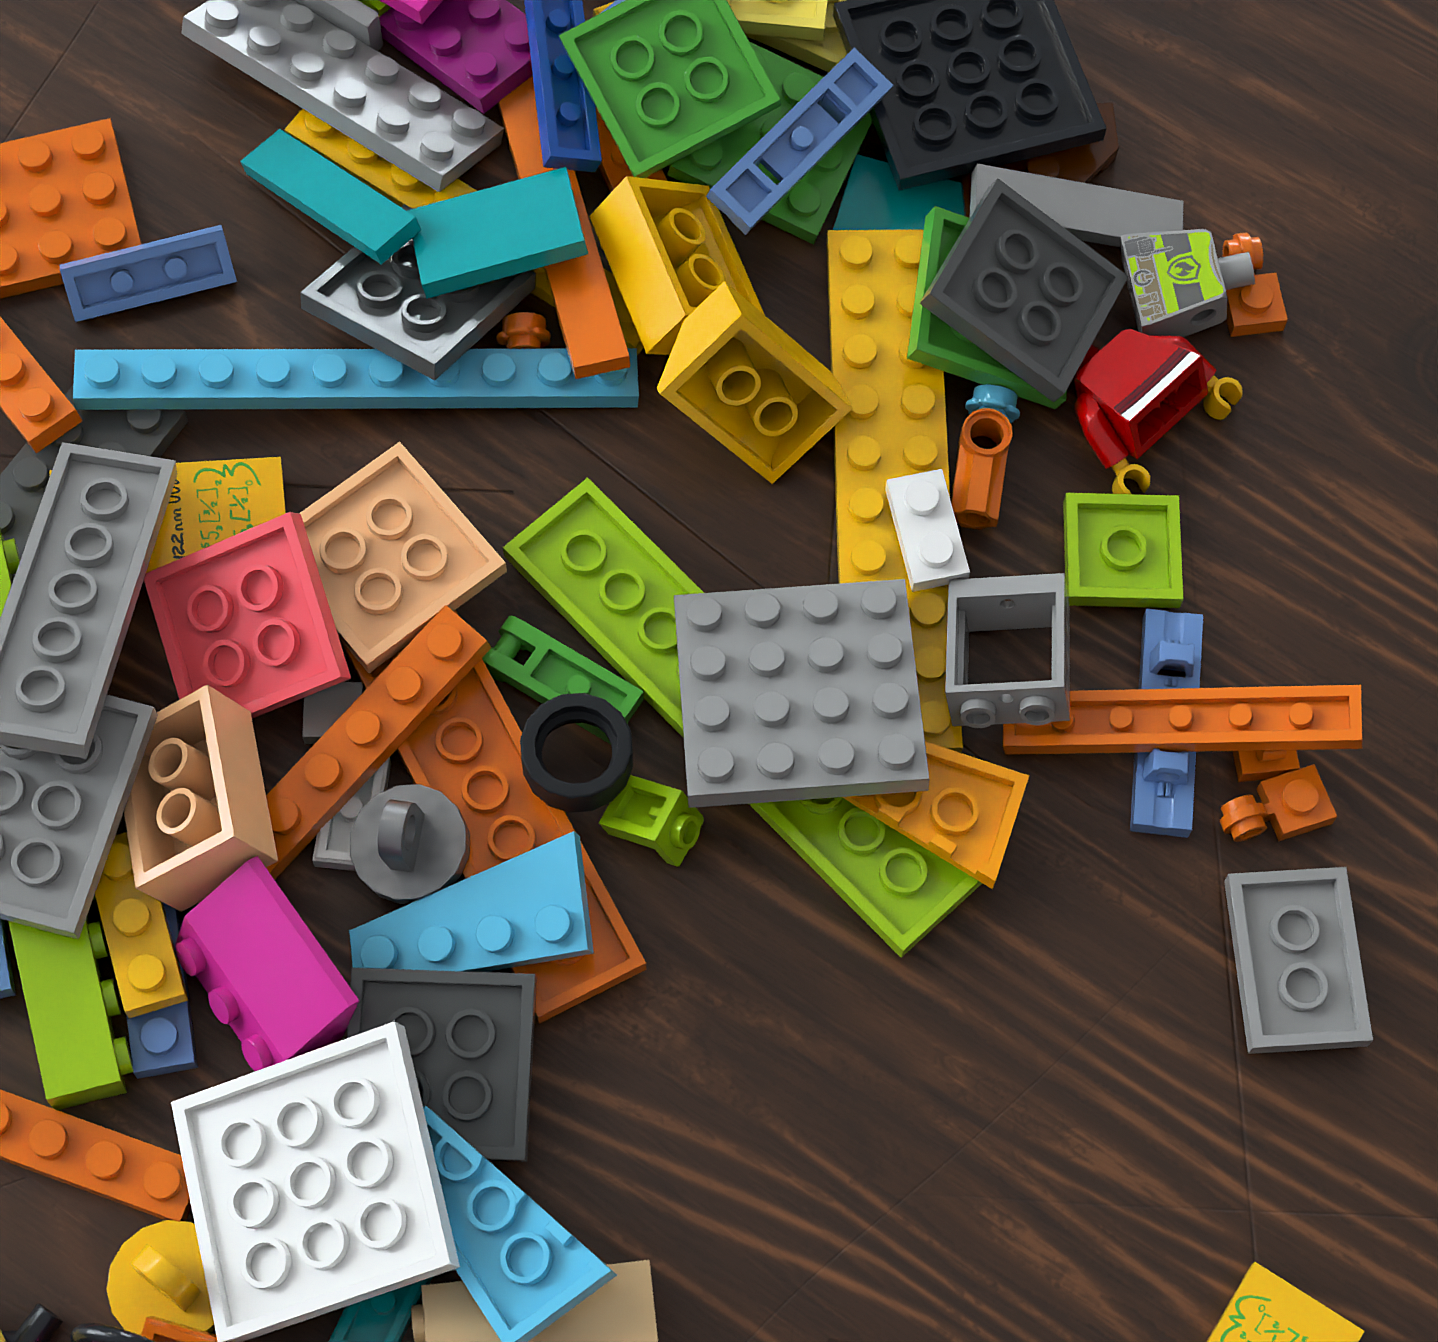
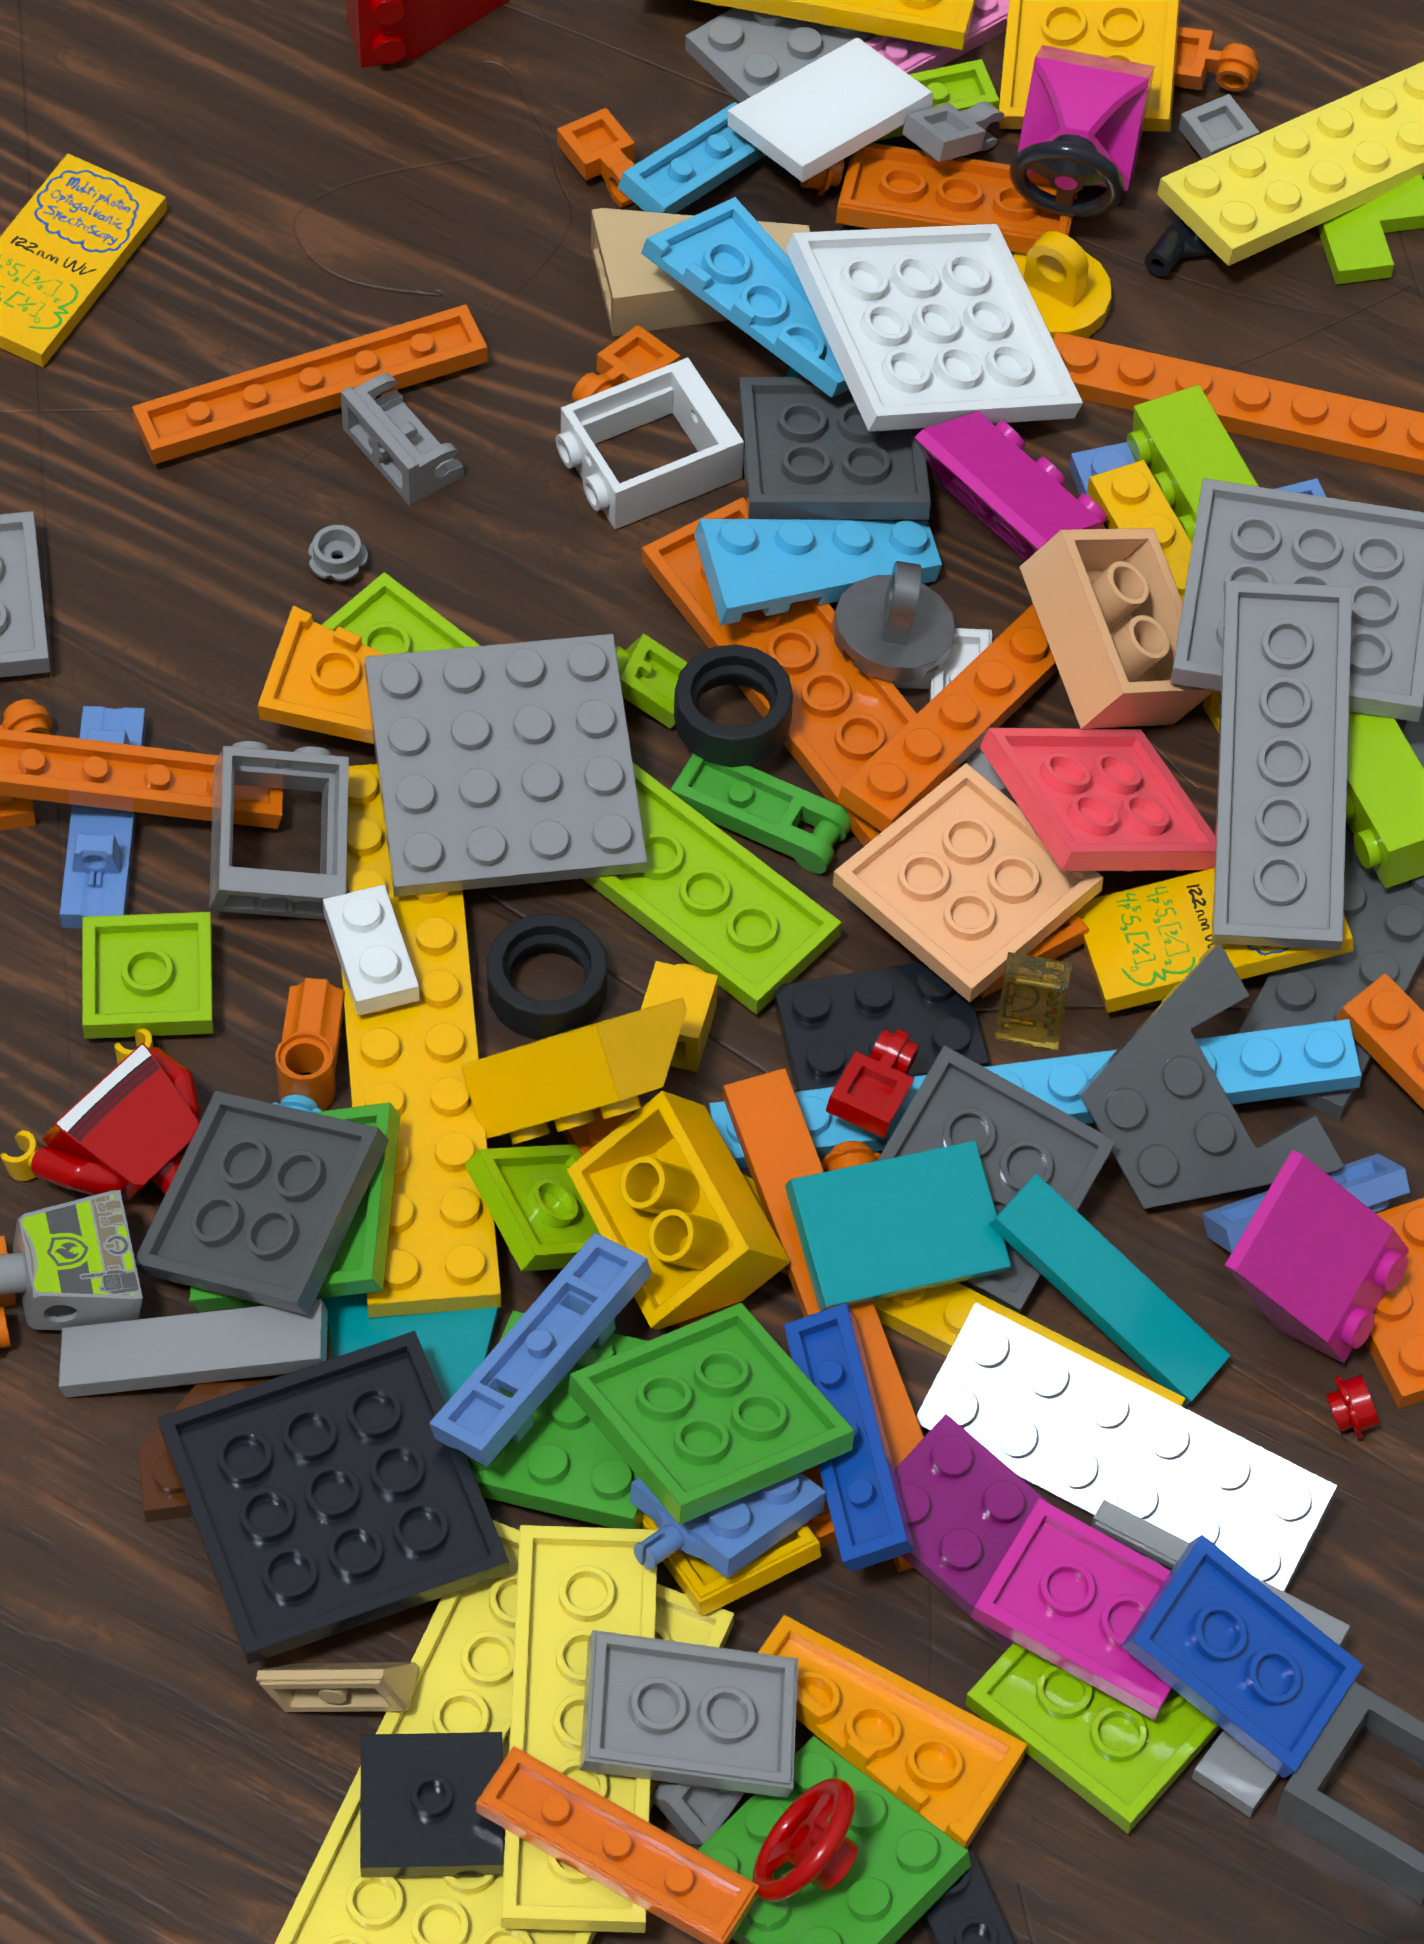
camera: 175 degrees right, 10 degrees down
(151, 115) = (1352, 1406): none -> red plate
(154, 172) = (1317, 1259): none -> dark pink slope
(231, 326) = (1170, 1112): none -> dark grey wing
(344, 434) = (1033, 1001): none -> clear yellow tile
(492, 459) = (846, 1013): none -> black plate
(499, 354) = (877, 1085): none -> red plate
(630, 1204) = (624, 360): none -> orange plate
(659, 474) = (700, 997): none -> yellow brick
(678, 1042) = (635, 403): none -> white window
(770, 484) = (546, 935): none -> black tyre
(798, 286) = (534, 1202): none -> lime plate
(879, 1126) = (397, 440): none -> light grey hinge
(949, 977) = (333, 542): none -> light grey plate
(970, 1204) = (307, 384): none -> orange plate

